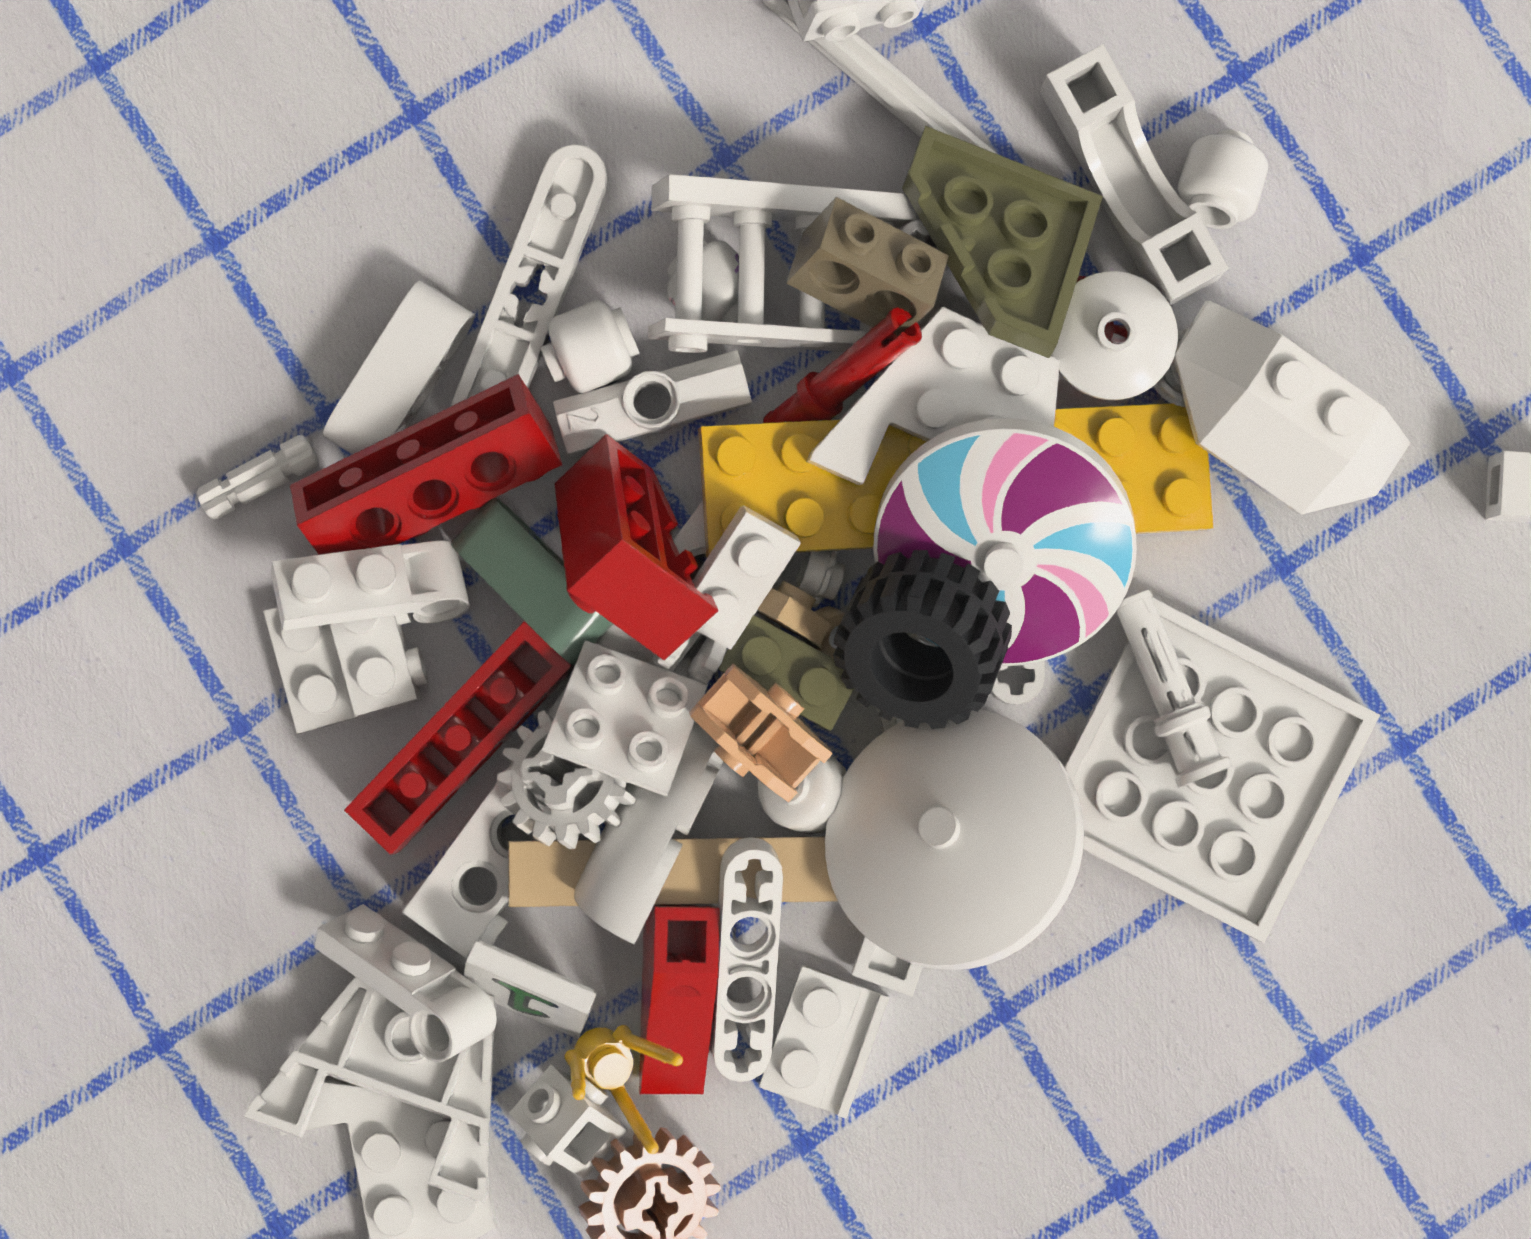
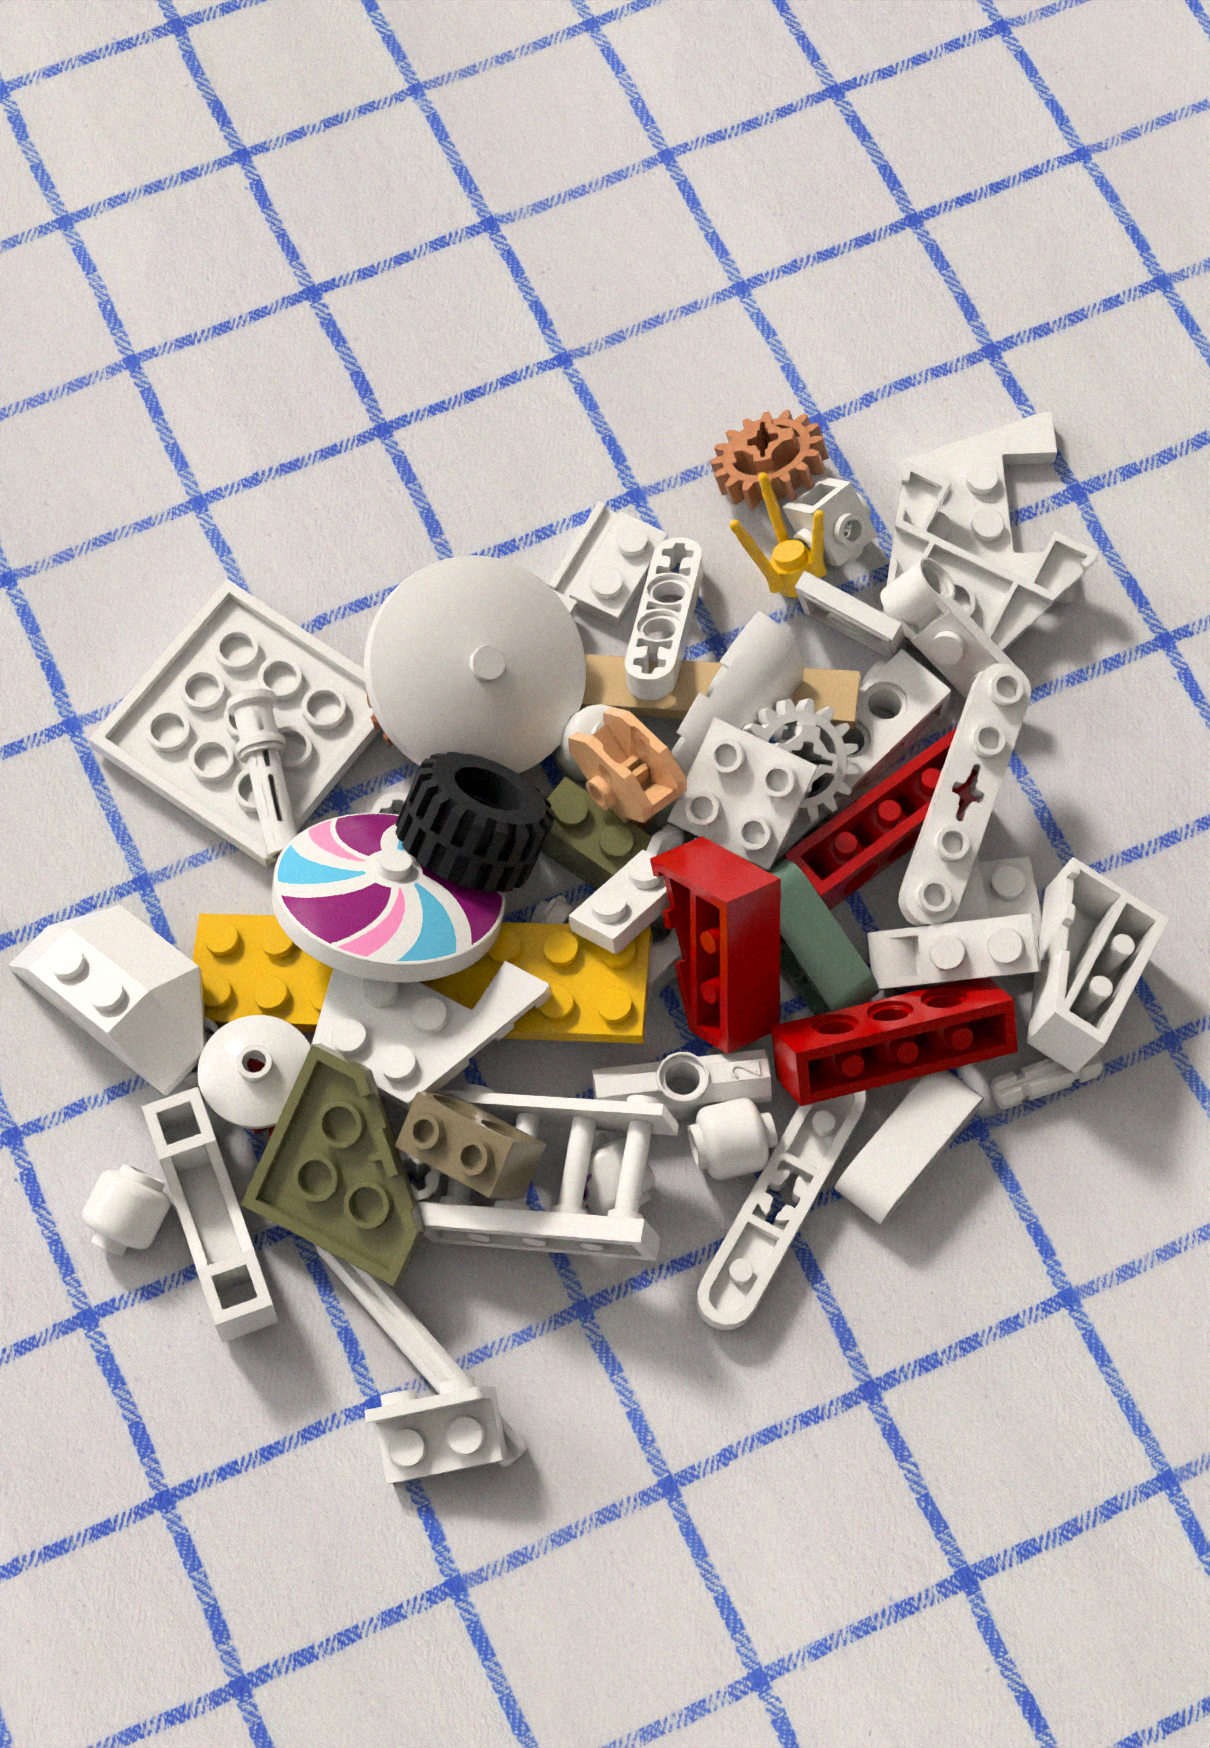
camera: 170 degrees left, 20 degrees down
(215, 591) = (1090, 960): none -> white wedge
(359, 829) = (949, 845): none -> white piece
(678, 994) = (722, 600): red slope -> none
(793, 611) = (570, 876): tan plate -> none
(822, 393) = (523, 1063): red pin -> none

